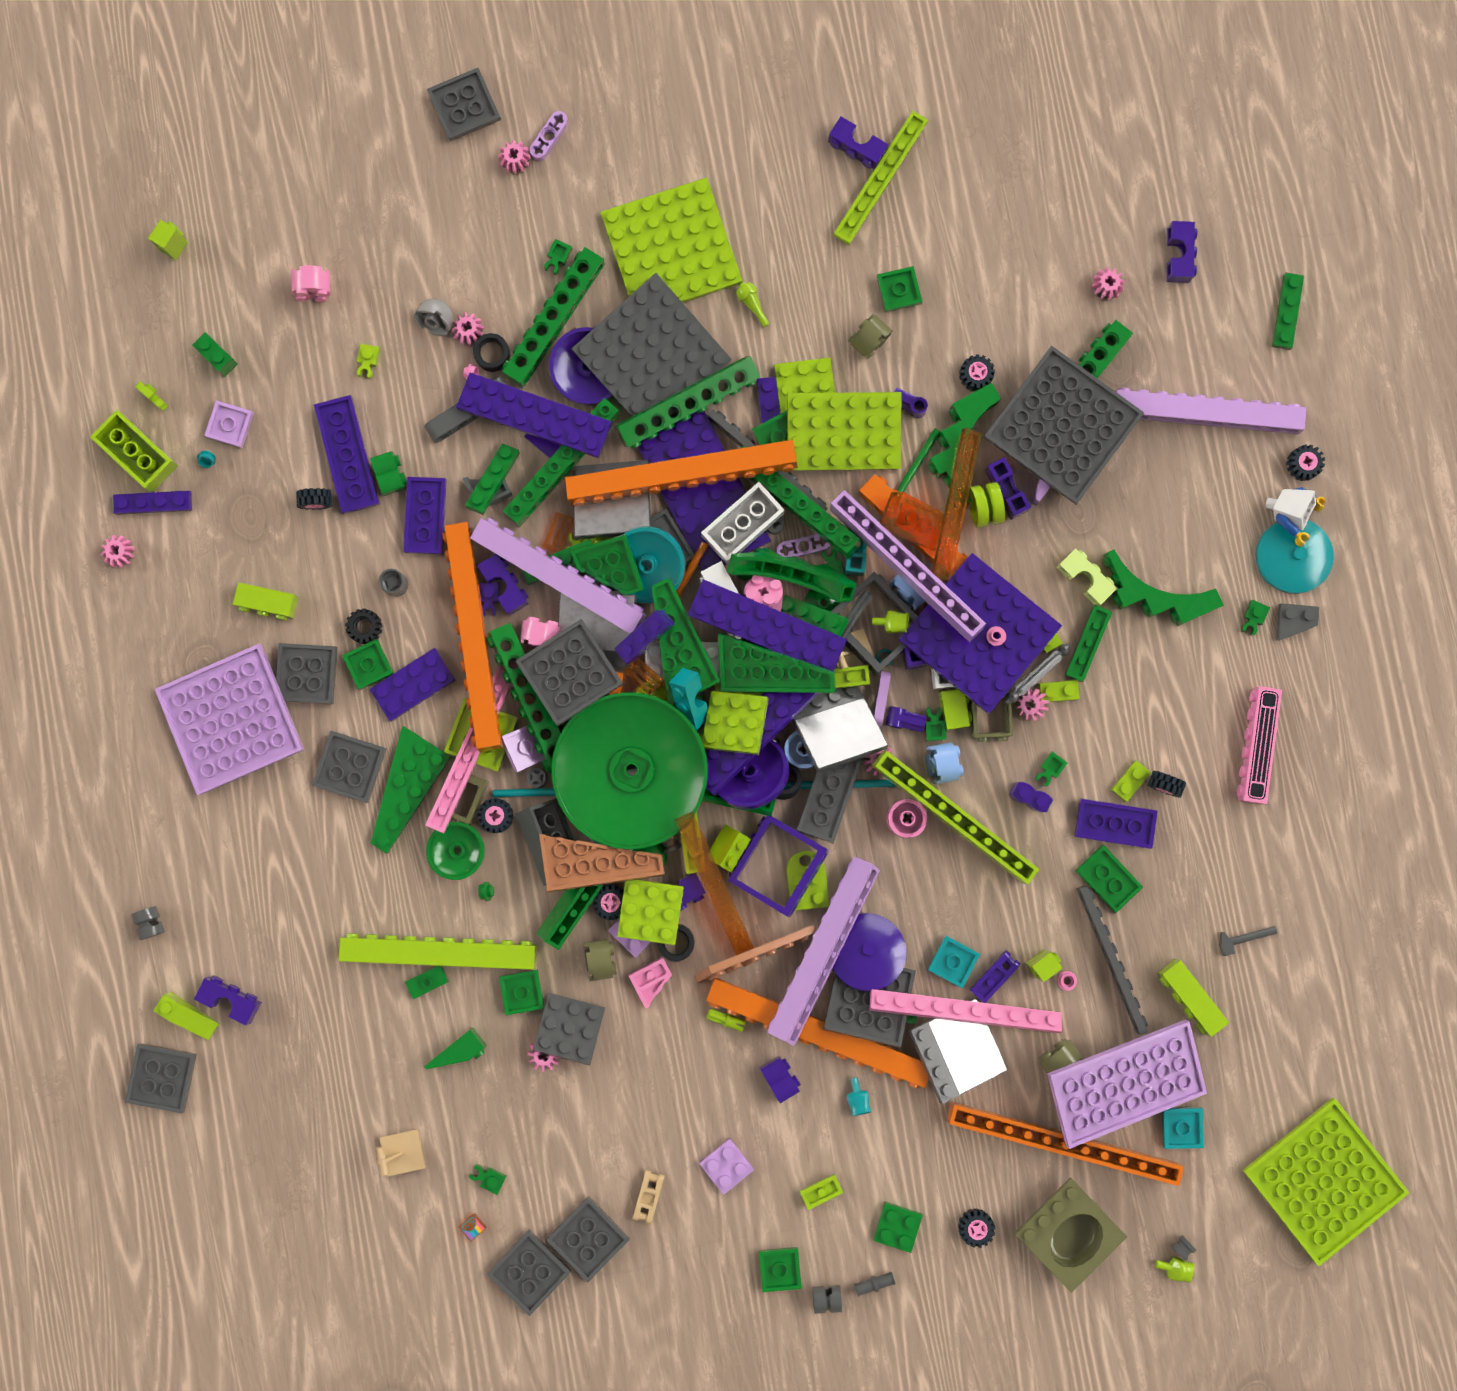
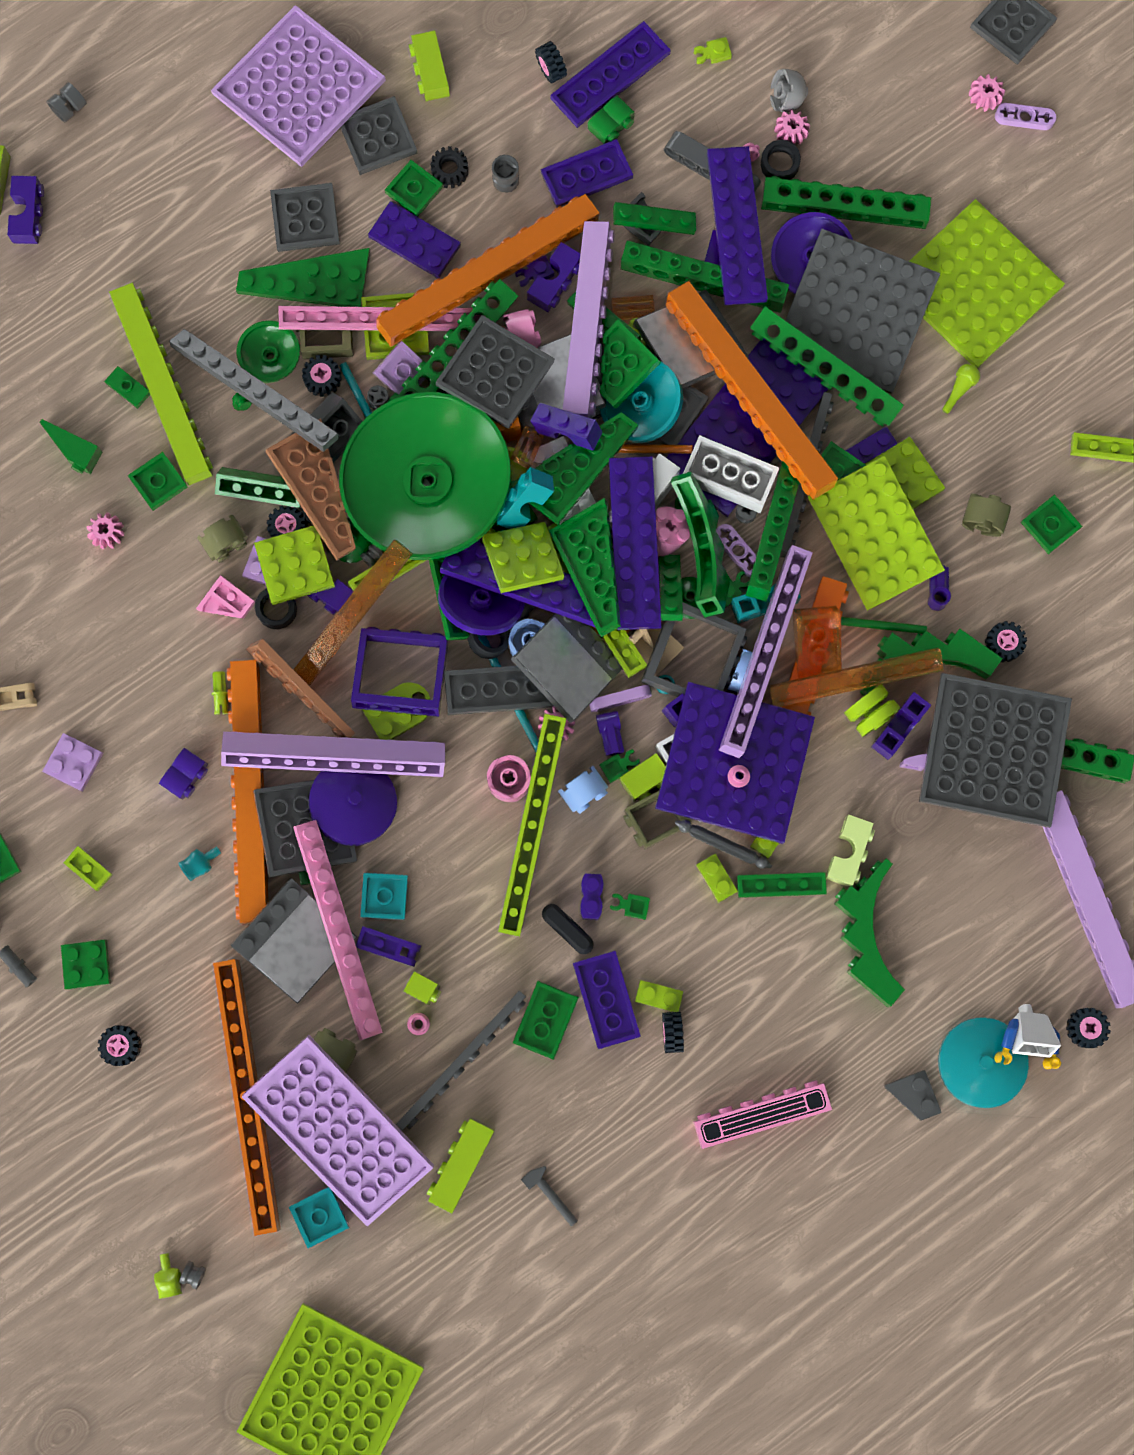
camera: 65 degrees right, 5 degrees down
(486, 878) = (254, 390): none -> plate
(558, 254) = (912, 178): green plate -> none
(569, 1029) = (140, 541): dark grey plate -> none
(729, 847) = (394, 614): lime brick -> none
(856, 611) = (694, 627): dark grey axle -> none
(893, 622) = (703, 669): lime piece -> none
(1032, 712) = (684, 861): bright pink gear -> none
(1046, 828) = (567, 928): none -> black piece
(1070, 1234) = (153, 1144): olive piece -> none
(1255, 614) = (900, 1049): green plate -> none

